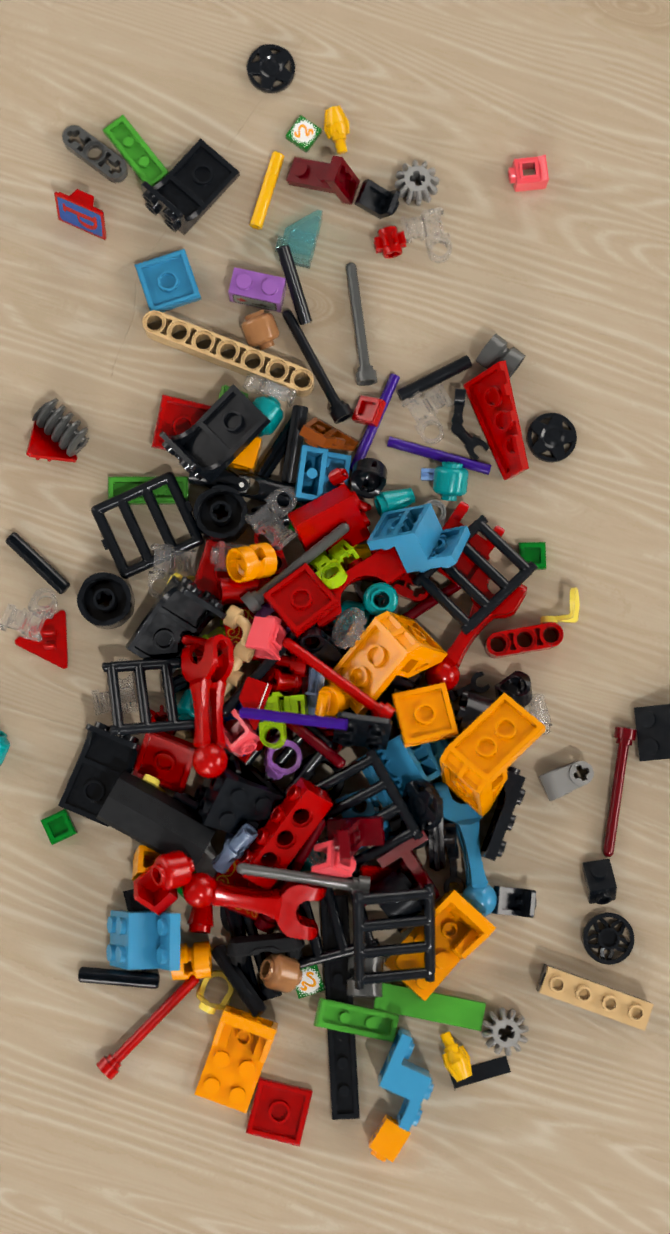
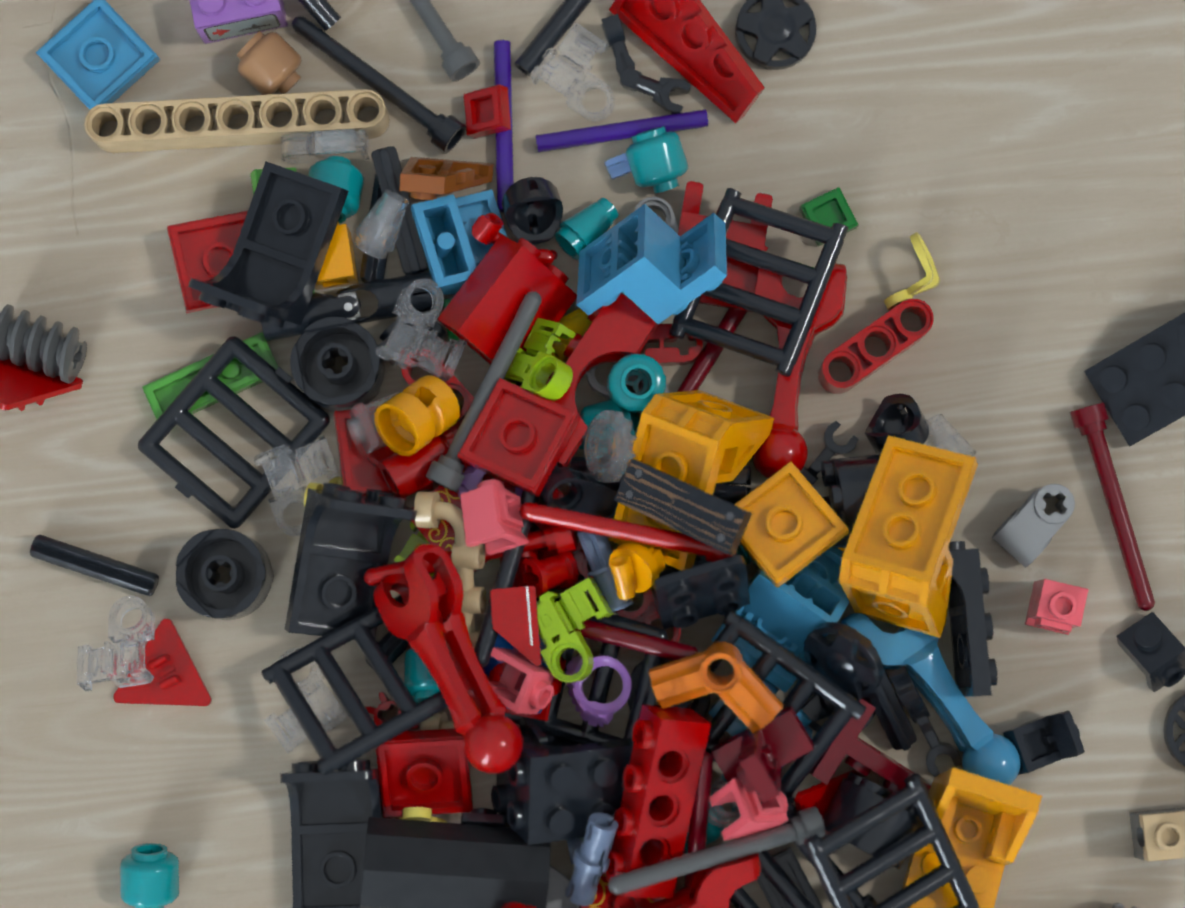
camera: 20 degrees left, 0 degrees up
(280, 449) = (381, 226): none -> clear cone
(293, 718) = (591, 621): dark purple bar -> none
(335, 775) = (740, 690): none -> orange piece
(372, 679) = (683, 507): none -> black tile
(556, 830) = (1056, 606): none -> coral window

